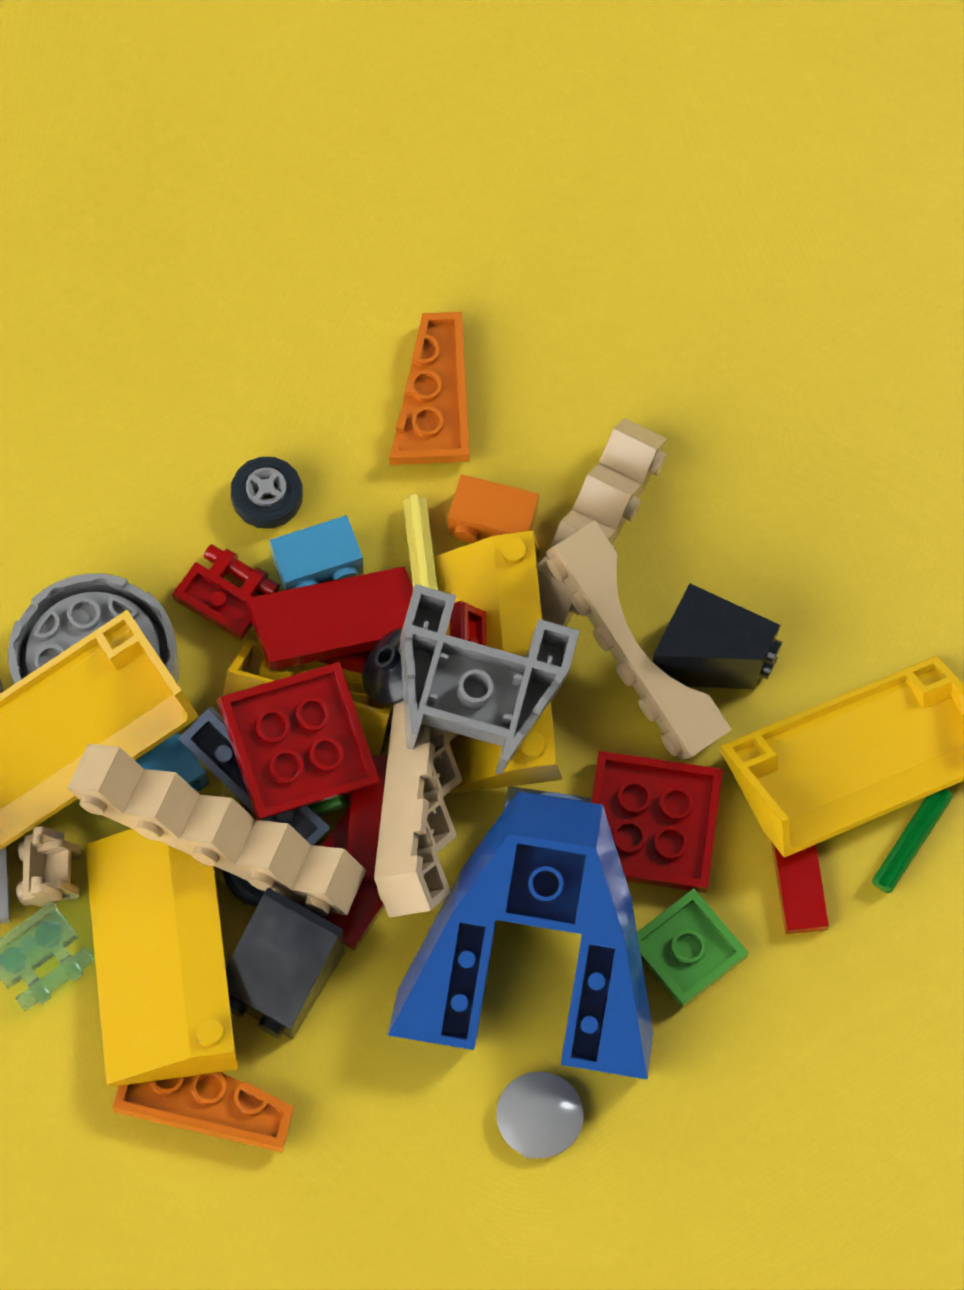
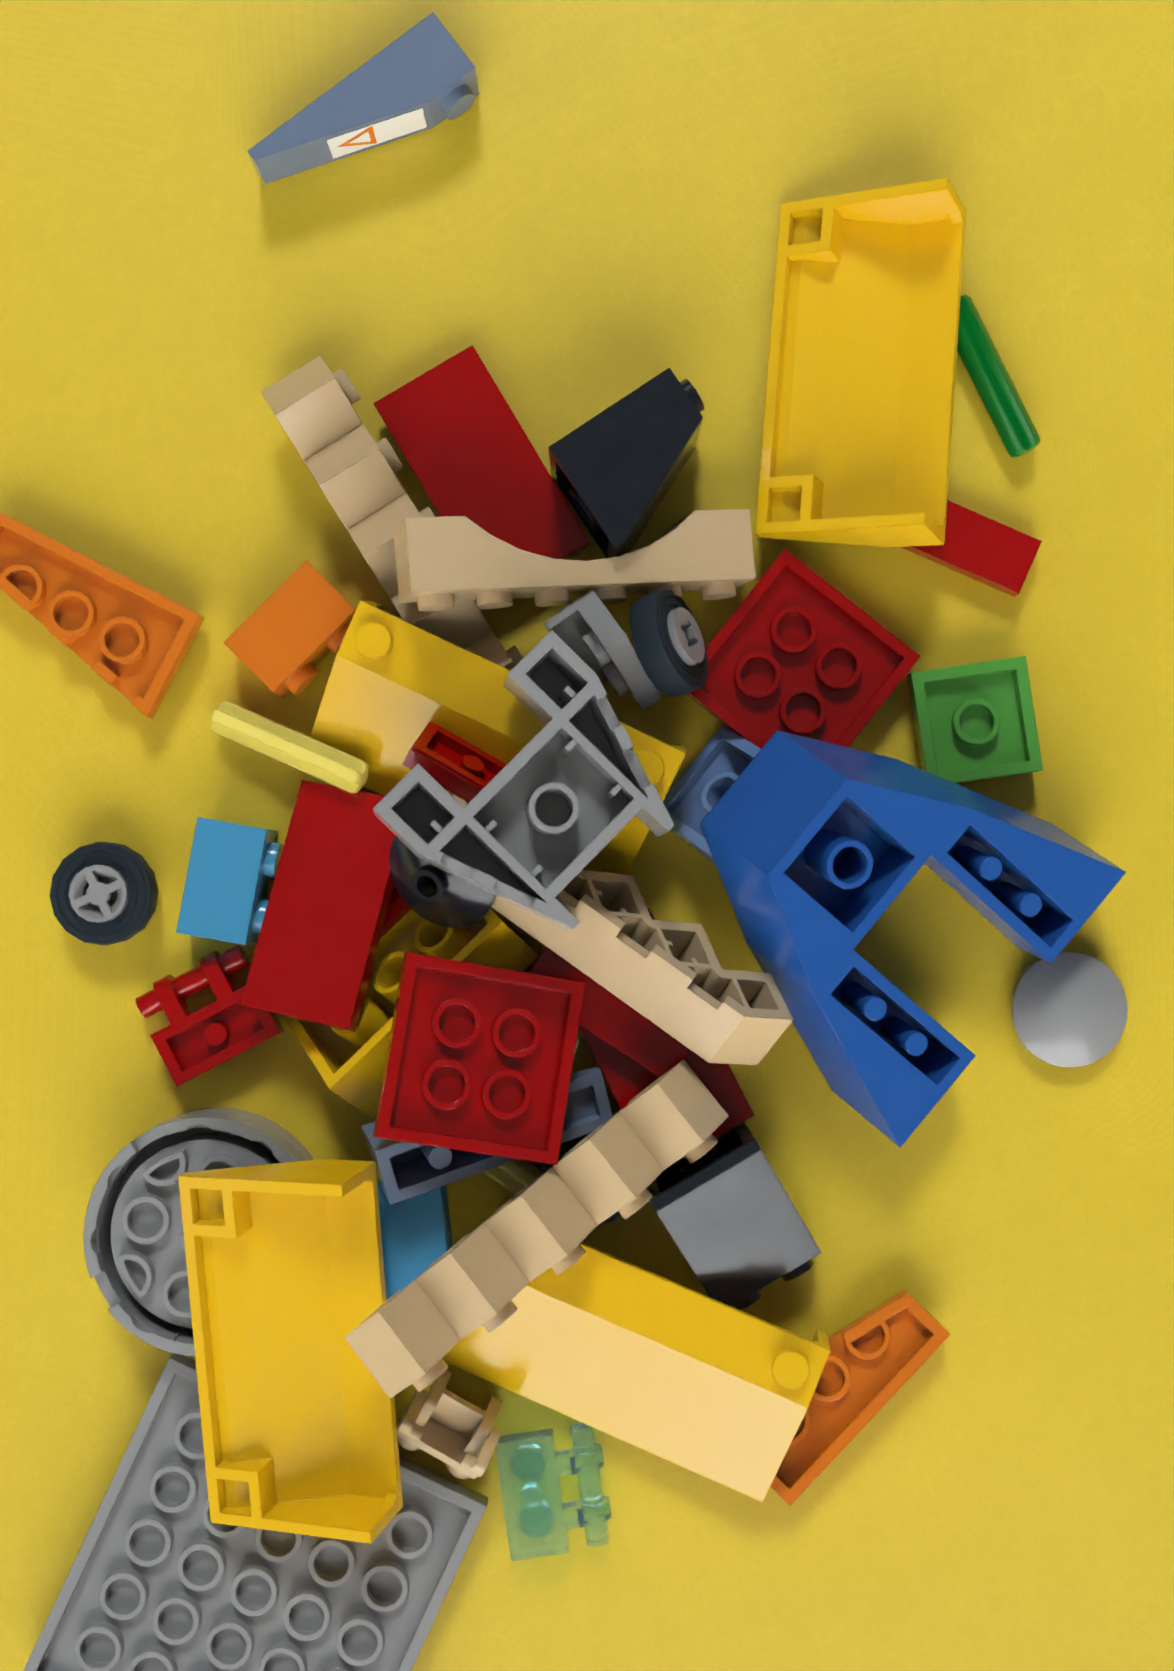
camera: 55 degrees left, 20 degrees up
(590, 689) = (604, 647): none -> light grey bracket
(618, 723) = (668, 643): none -> black wheel
(661, 559) = (479, 458): none -> red tile
(847, 397) = (387, 98): none -> sand blue slope

